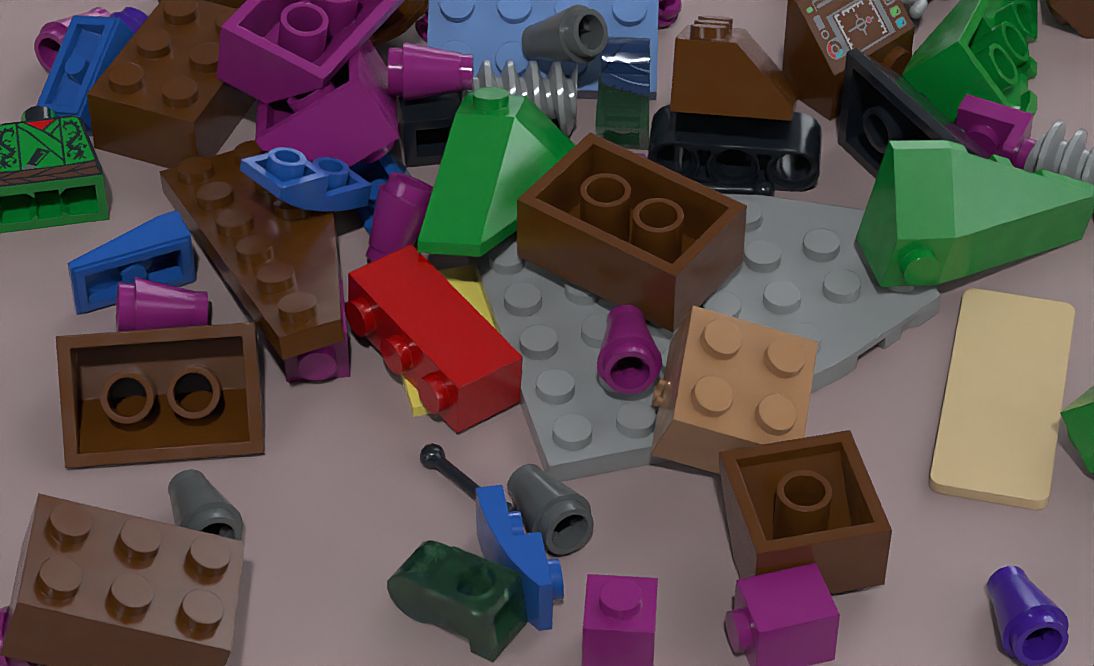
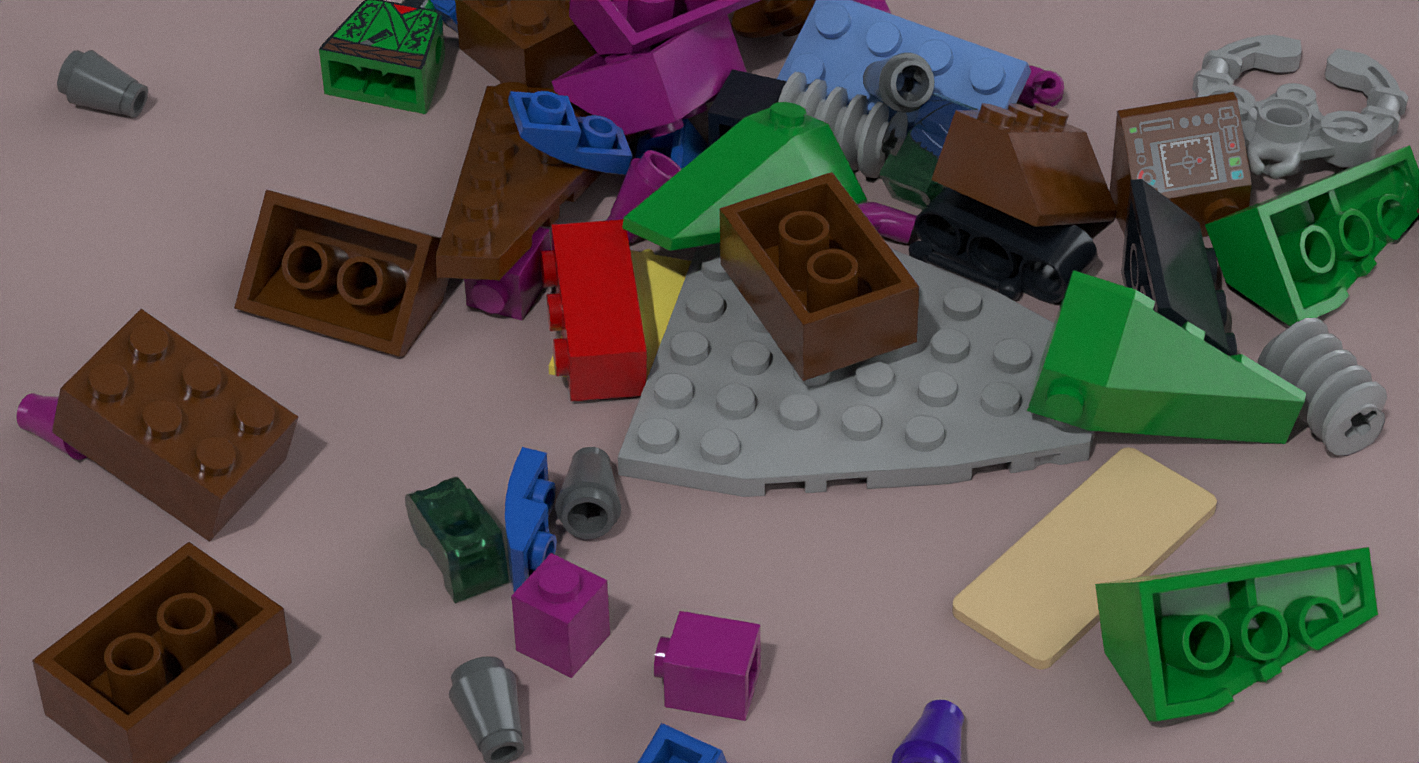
camera: 30 degrees right, 0 degrees up
(153, 251) = (402, 157): blue slope -> none
(158, 306) = (397, 201): magenta cone -> none
(202, 507) = (305, 385): dark grey cone -> none
(427, 71) = (747, 71): magenta cone -> none
(433, 457) = (535, 413): black hinge -> none
(628, 353) = (741, 382): magenta cone -> none
(730, 388) = (802, 456): medium nougat brick -> none
(806, 506) = (790, 574): reddish brown slope -> none
(997, 128) = (1258, 309): magenta bracket -> none

